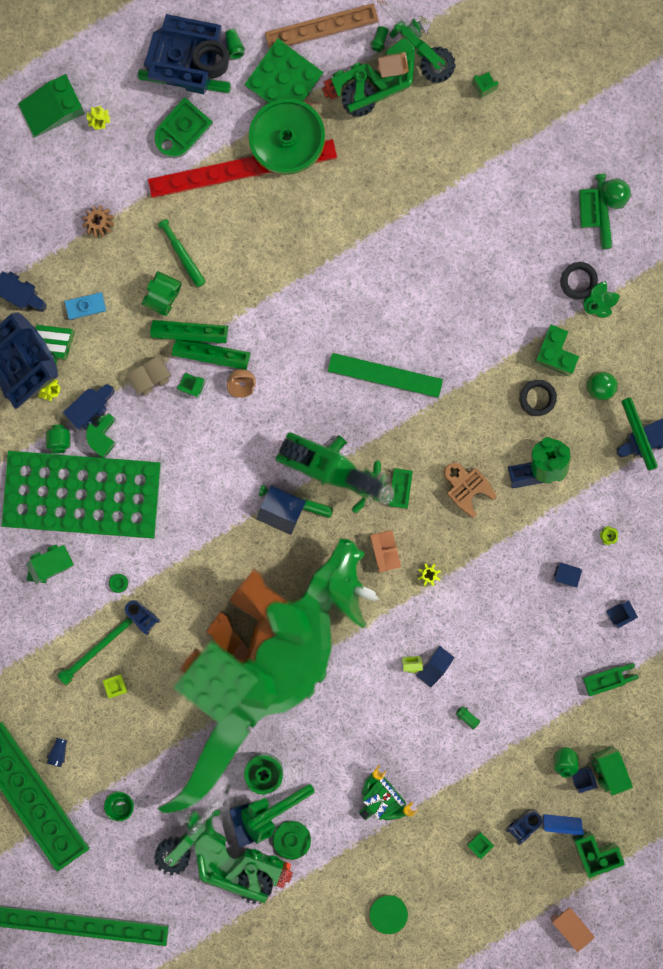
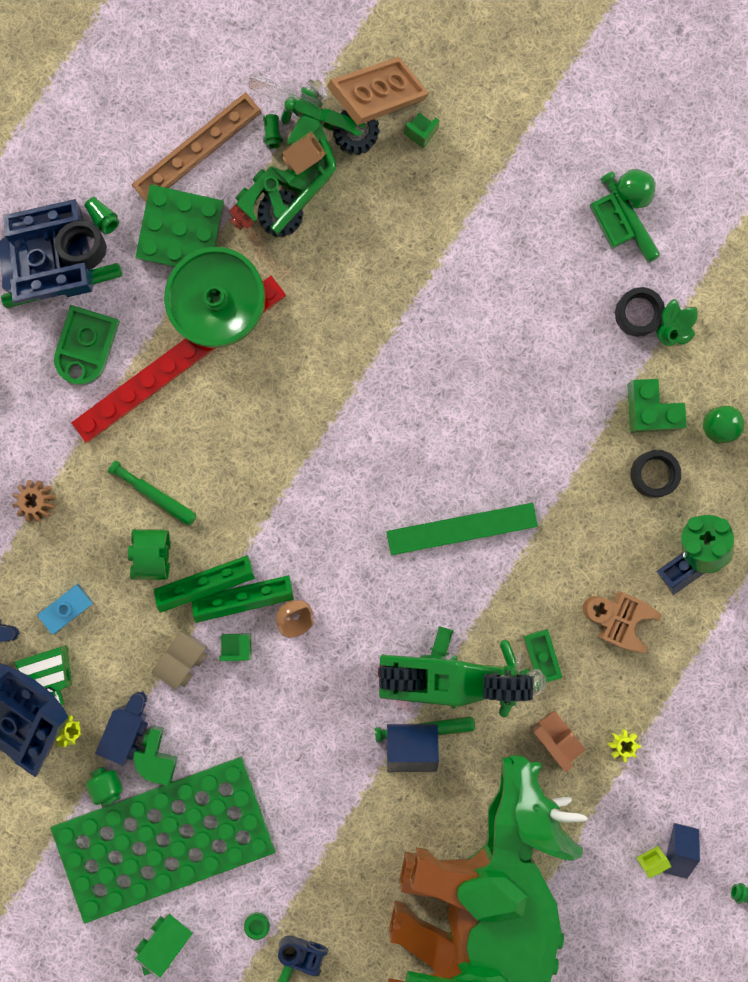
camera: 30 degrees left, 0 degrees up
(465, 43) = (377, 90): none -> medium nougat plate

